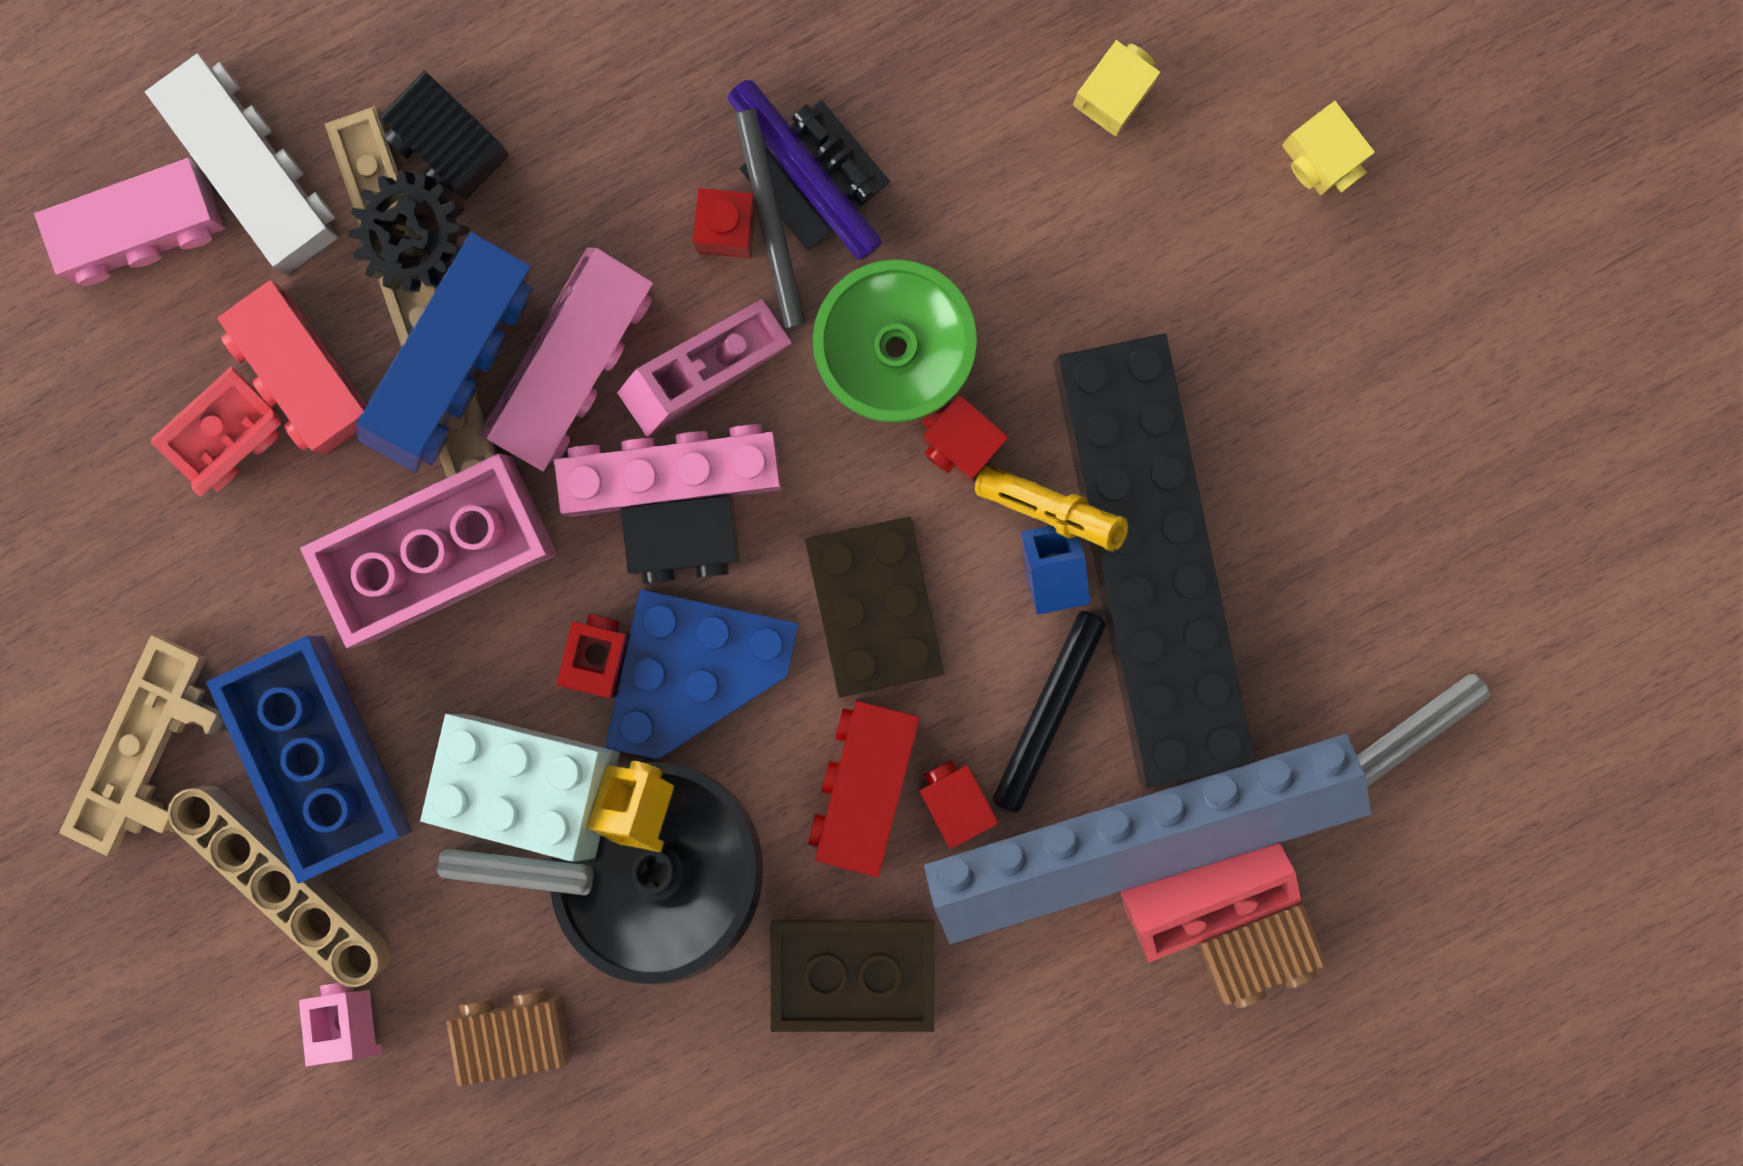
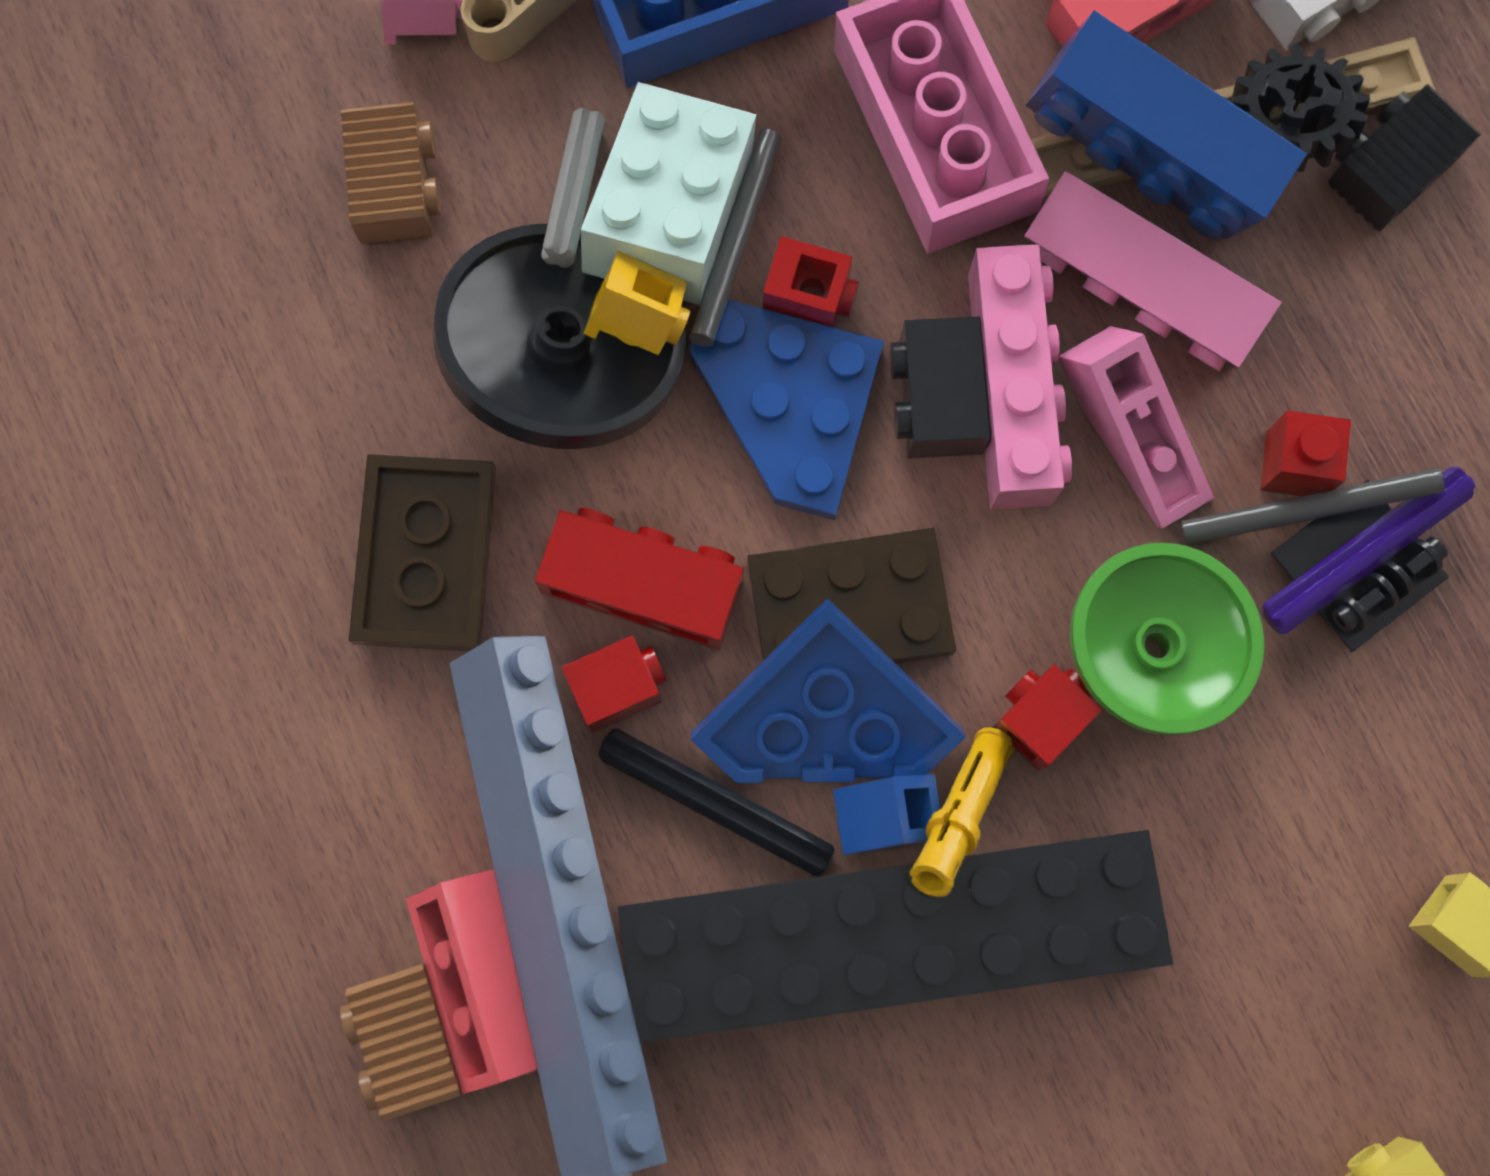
camera: 90 degrees right, 10 degrees down
(552, 724) = (735, 238): none -> dark grey bar
(971, 623) = (827, 712): none -> blue plate

